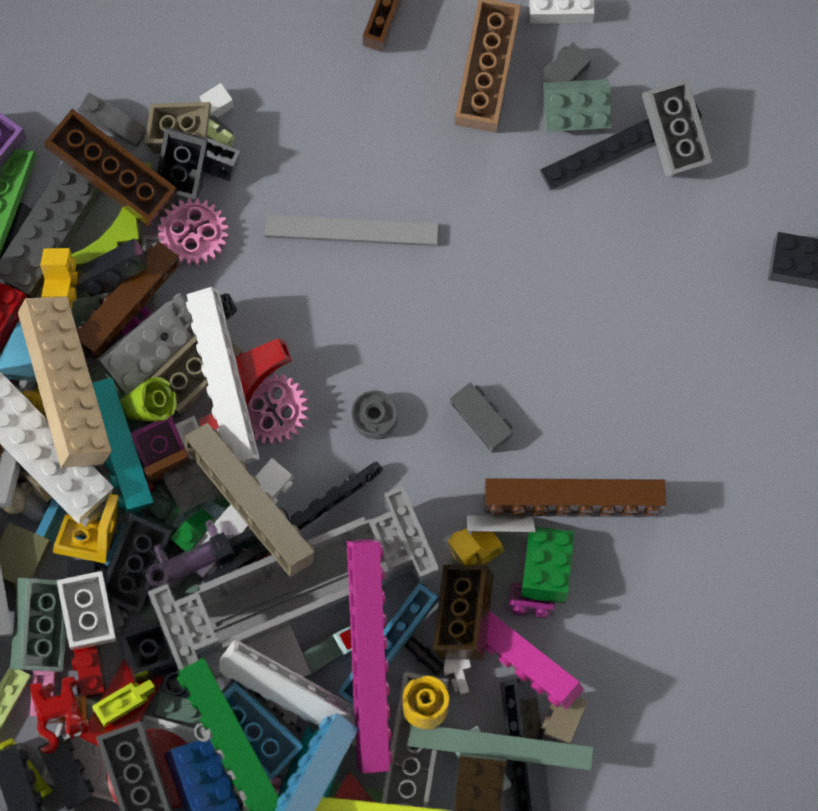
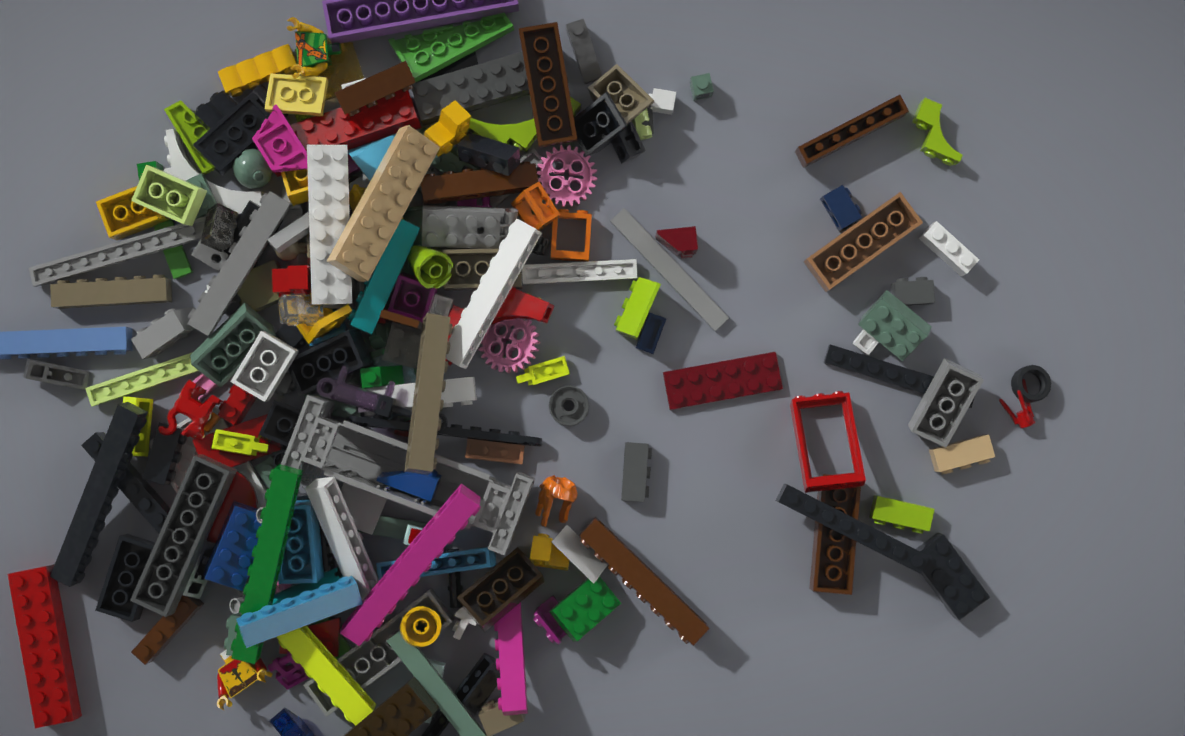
camera: 45 degrees right, 10 degrees up
(43, 520) = (292, 280): none -> red brick
(72, 539) = (299, 310): none -> clear brick
(184, 264) = (530, 201): none -> orange window
(237, 61) = (701, 86): none -> sand green brick
(258, 291) = (571, 255): none -> orange window
(279, 298) = (579, 271): none -> white plate
(306, 591) = (412, 483): none -> blue slope
(327, 406) = (544, 371): none -> neon yellow hinge
(337, 197) = (679, 241): none -> dark red slope
(349, 508) = (495, 451): none -> nougat plate
(354, 282) = (636, 307): none -> lime slope
(385, 295) = (651, 333): none -> dark blue tile
(424, 495) = (553, 488): none -> orange piece
(444, 54) = (841, 207): none -> dark blue brick
(481, 279) = (722, 380): none -> dark red plate
(567, 140) = (865, 342): none -> white plate
(645, 274) = (829, 482): none -> red door
(692, 313) = (832, 552): none -> reddish brown brick
(699, 291) = (852, 528): none -> black brick
(729, 249) = (901, 514): none -> lime brick
(730, 39) = (1043, 377): none -> black tyre
(731, 158) = (962, 454): none -> tan brick
(751, 84) = (1025, 416): none -> red plant

